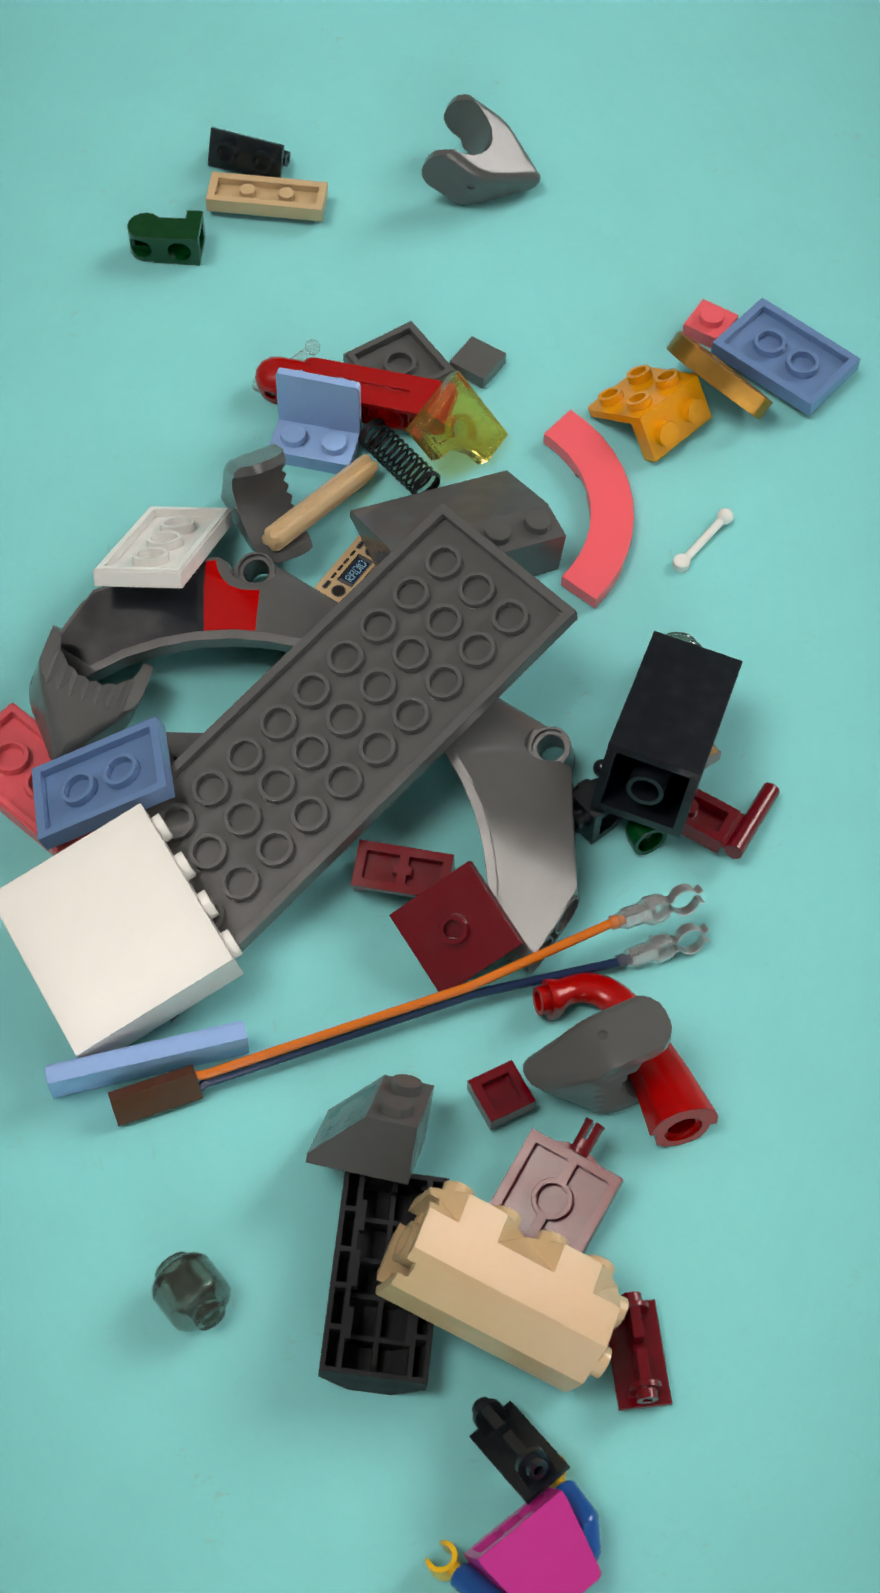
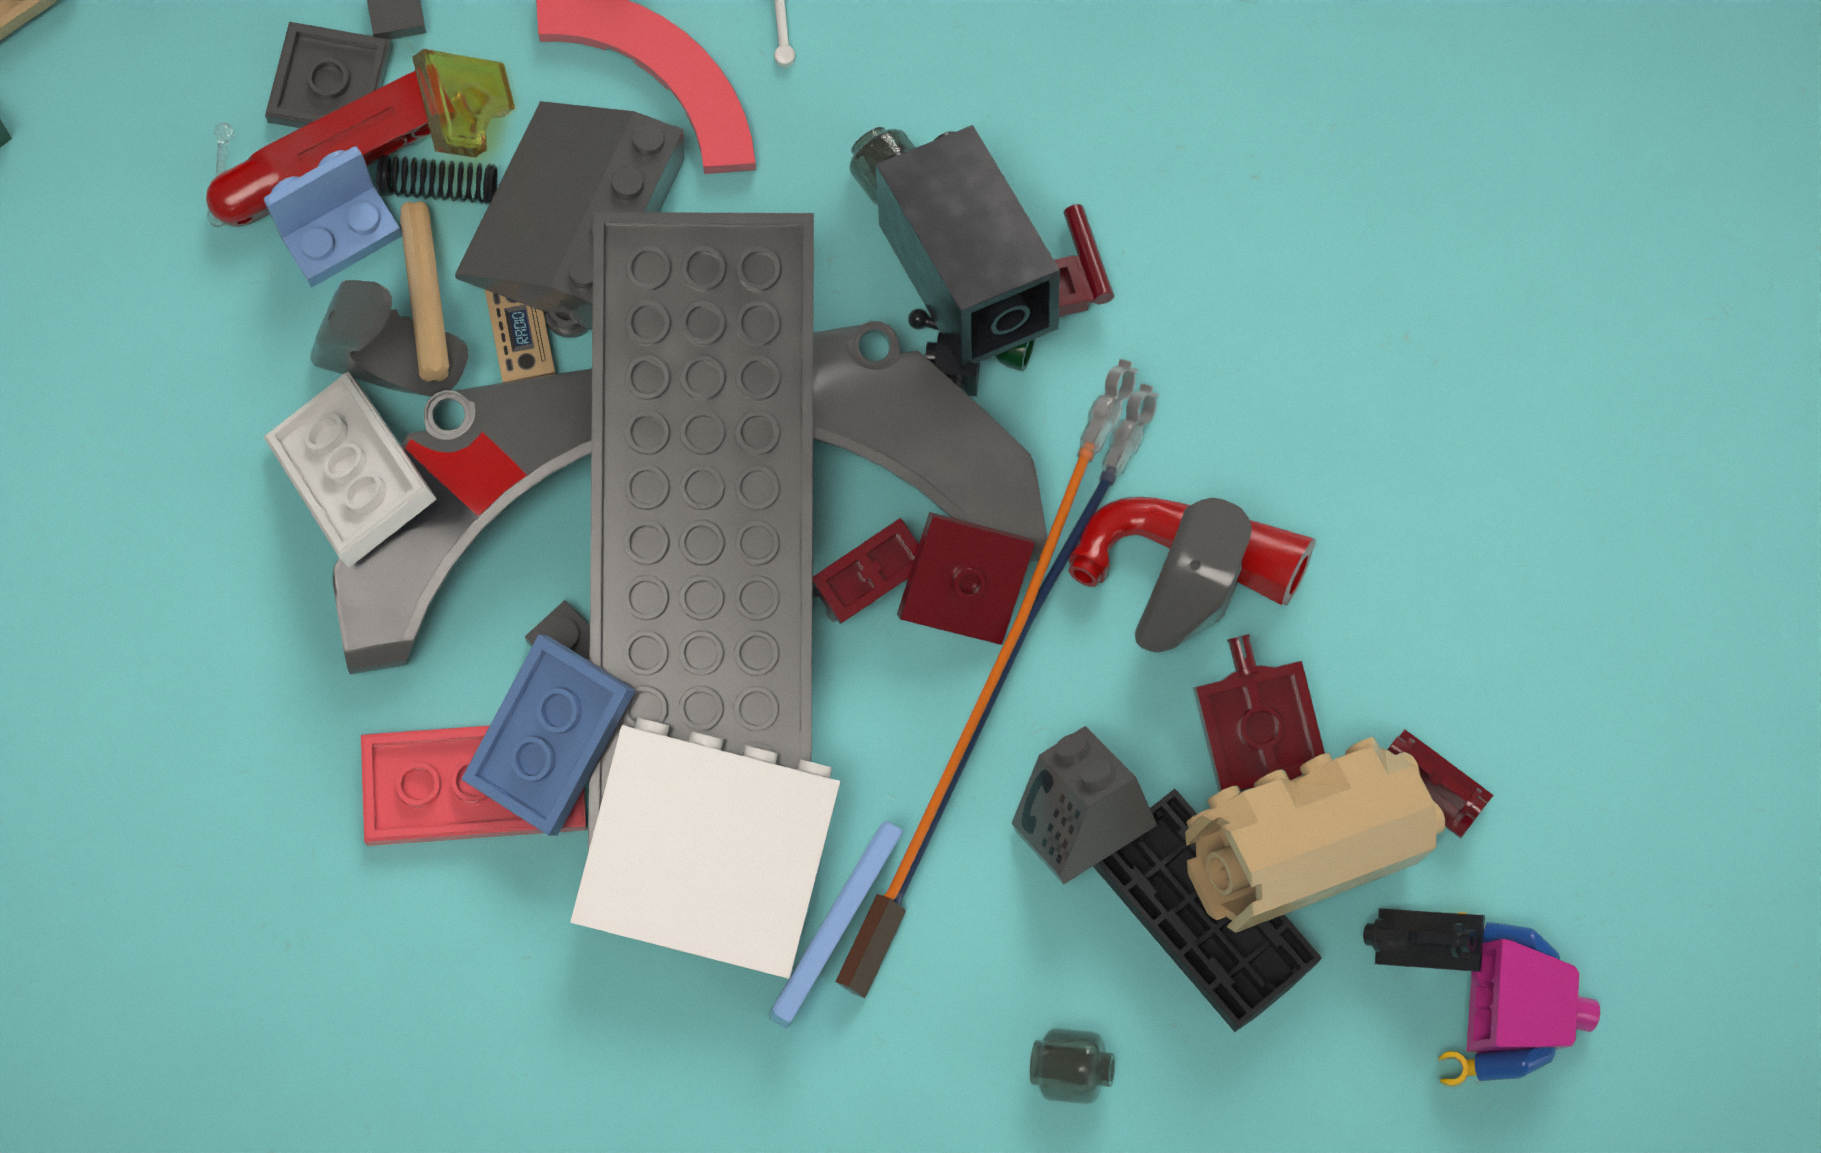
camera: 45 degrees left, 15 degrees up
(77, 710) = (438, 696): dark grey animal -> none
(501, 1094) = (1133, 681): dark red plate -> none

